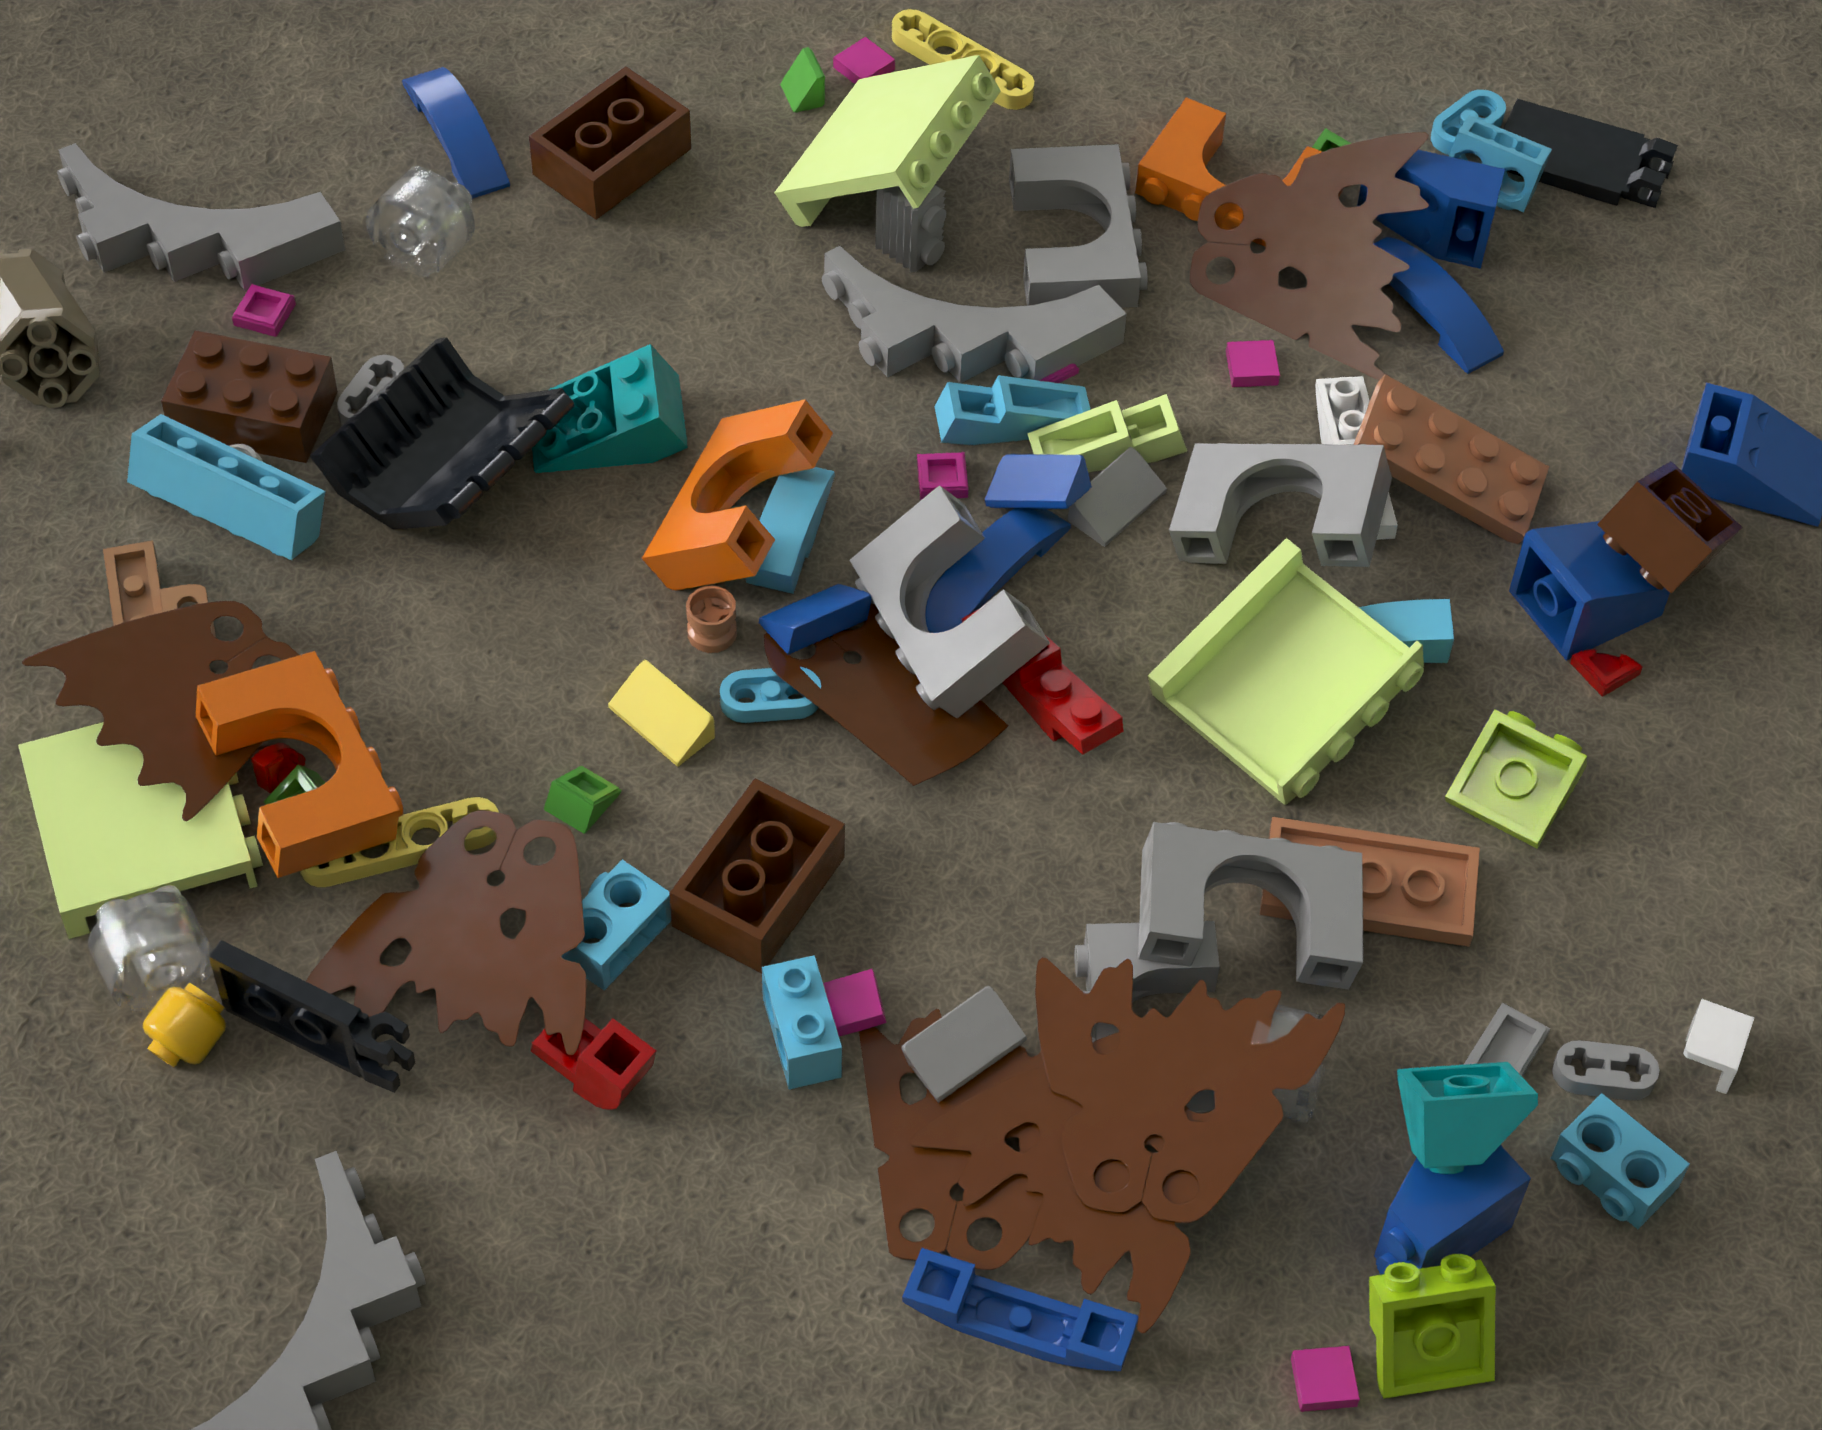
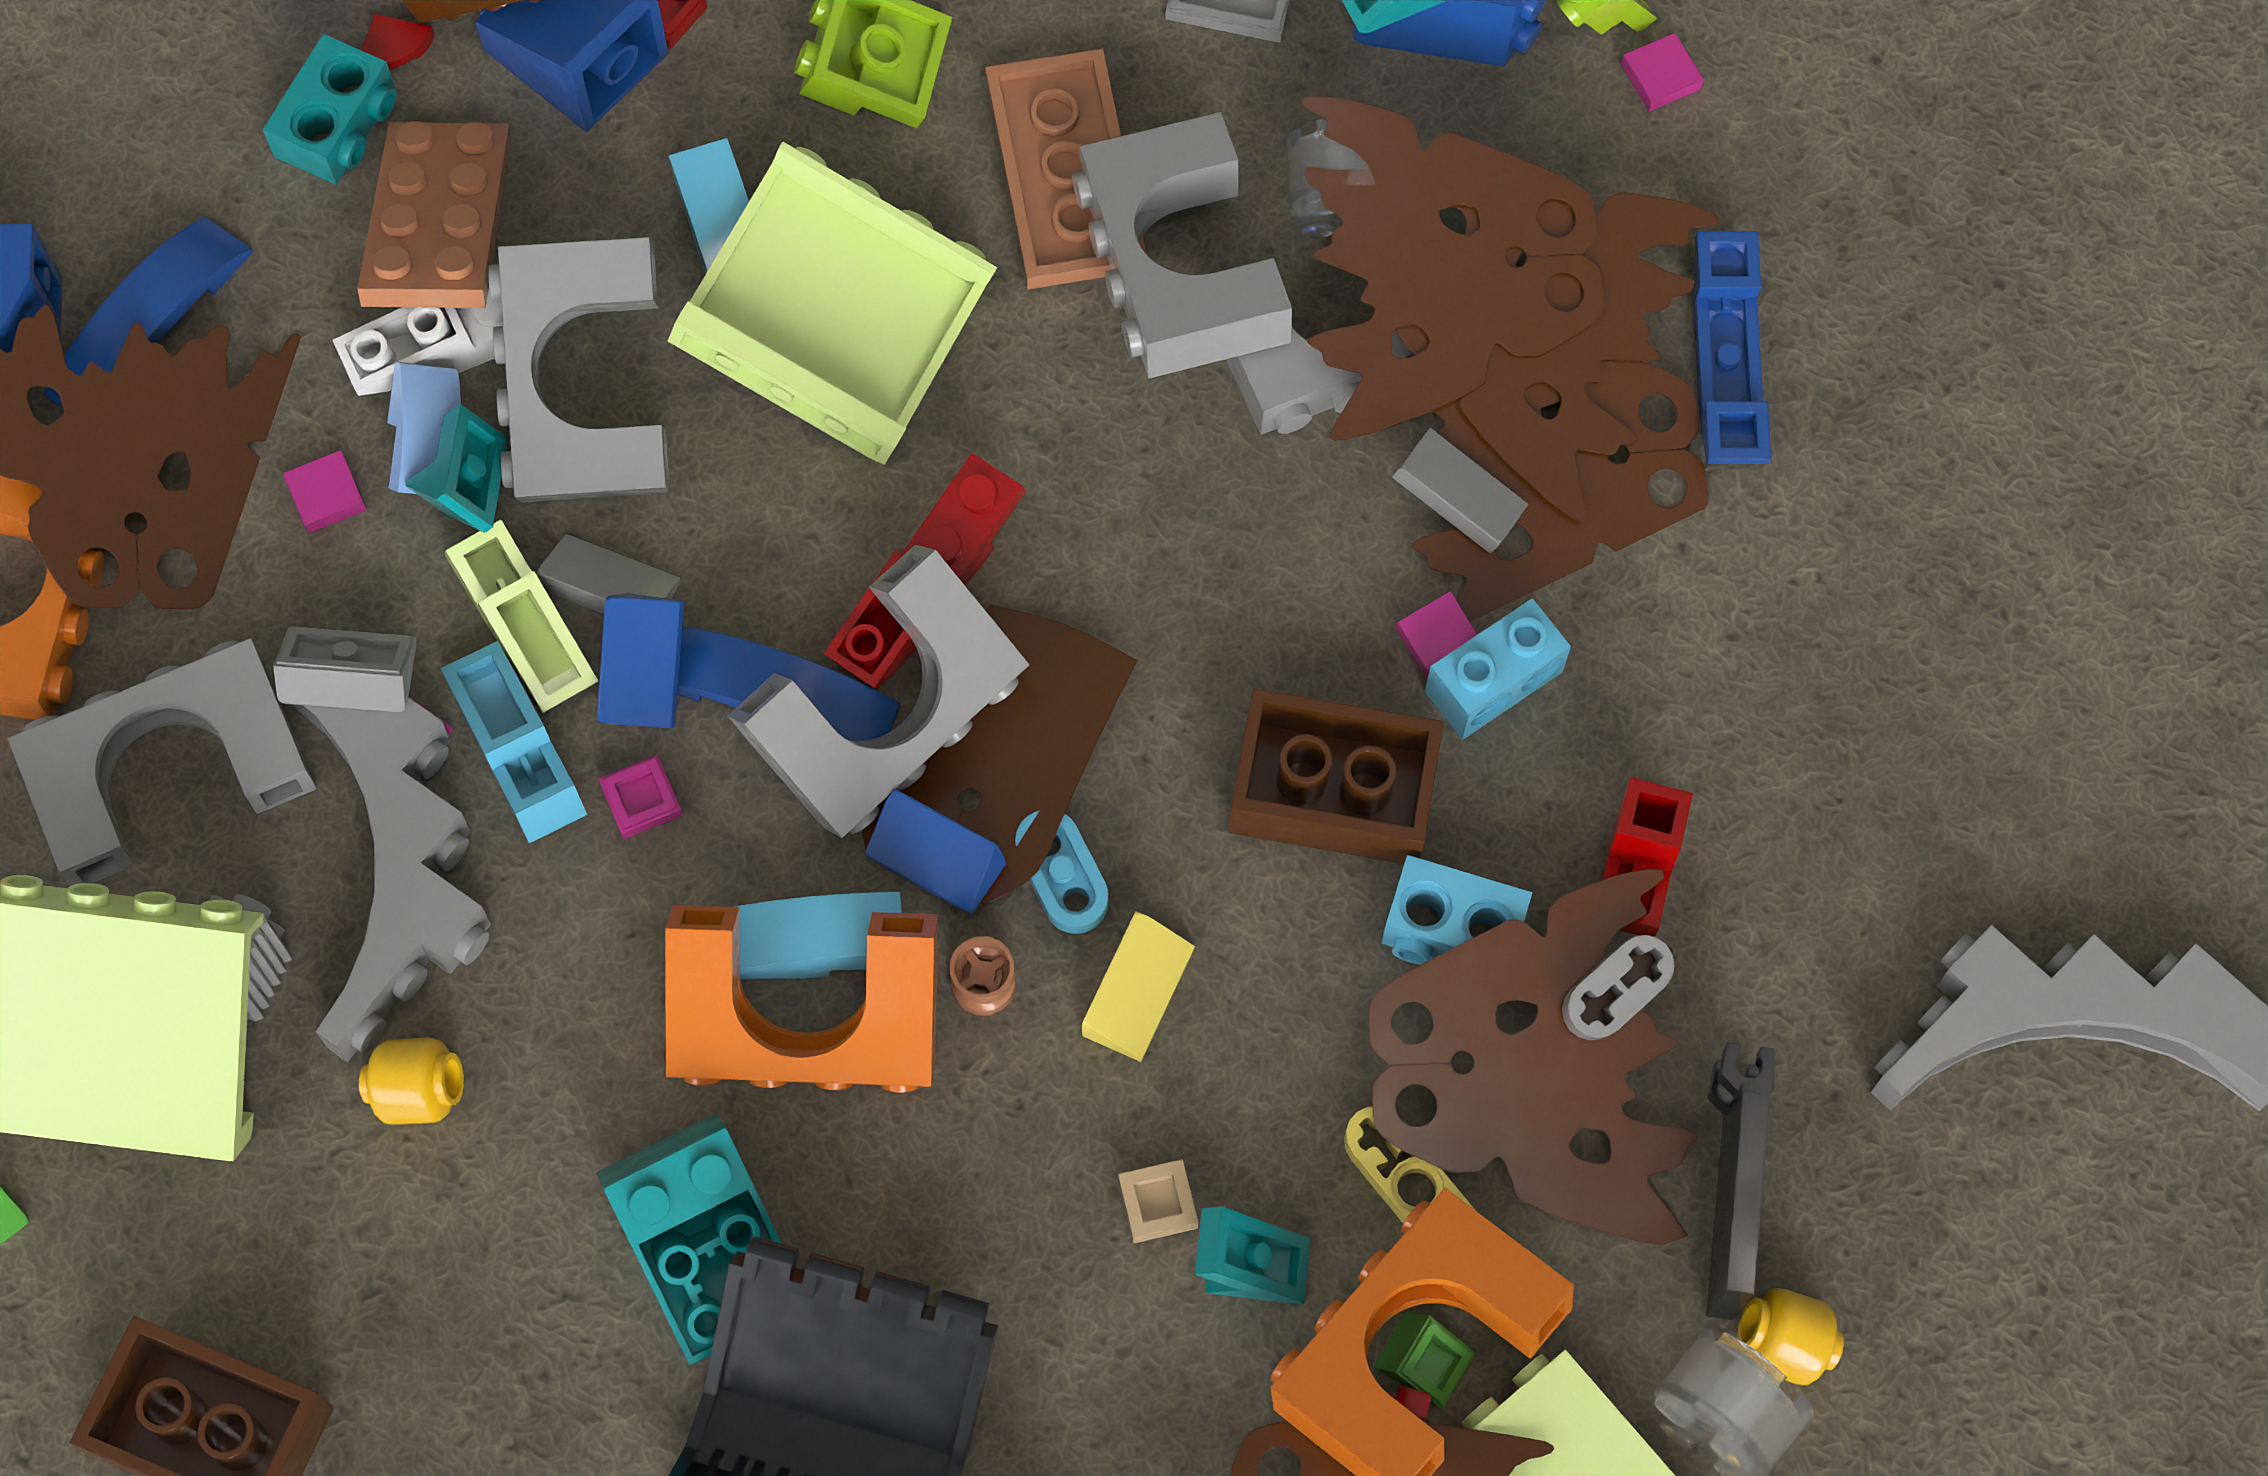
camera: 110 degrees left, 15 degrees up
(426, 706) = (1251, 1257): none -> teal slope
(485, 992) = (1628, 999): none -> light grey beam
(497, 674) = (1158, 1201): none -> tan plate
(580, 798) = (1286, 1034): bright green slope -> none
(788, 297) = (411, 1081): none -> yellow head
(1095, 315) = (344, 669): none -> light grey slope
(1221, 415) = (466, 470): none -> teal slope
(1273, 414) = (417, 409): none -> light blue slope
(1567, 431) = (318, 106): none -> teal brick
(1616, 482) = (397, 40): none -> red tile

